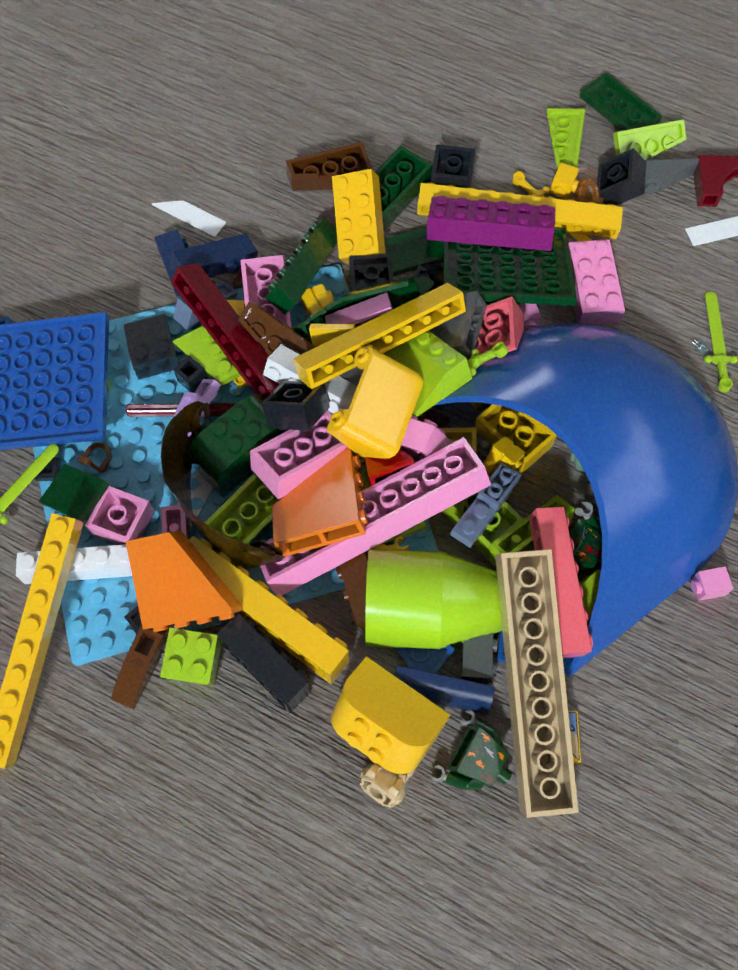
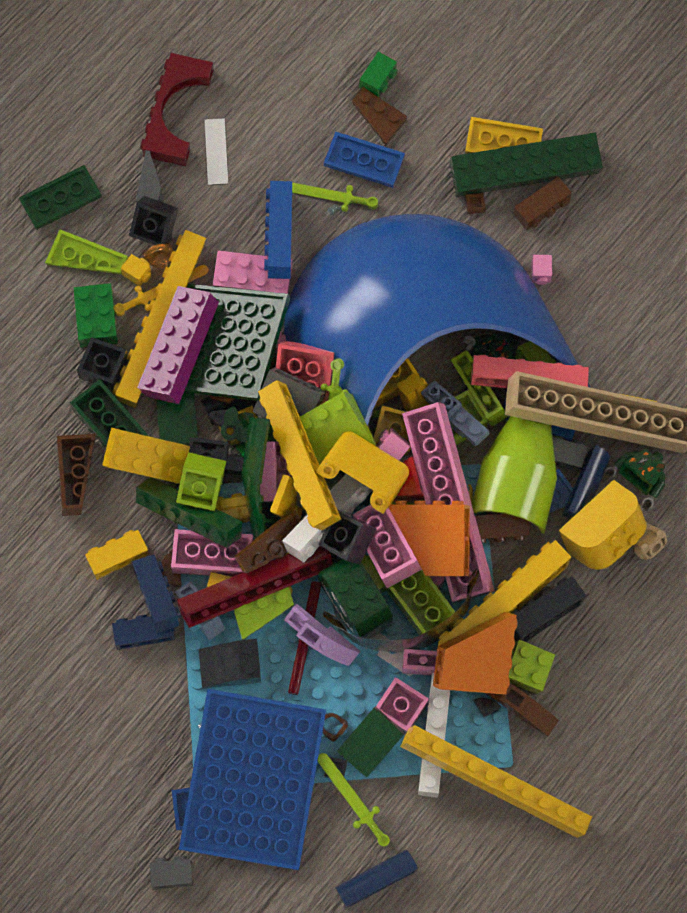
camera: 80 degrees left, 5 degrees up
(190, 374) = (275, 630): black brick -> none
(192, 216) = (85, 613): white sticker -> none
(255, 223) = (116, 553): none -> yellow brick
(336, 261) = (201, 481): none -> lime brick
(503, 155) = (95, 314): none -> green brick
(650, 139) = (110, 186): lime wing -> none
(653, 289) = (279, 231): none -> blue brick

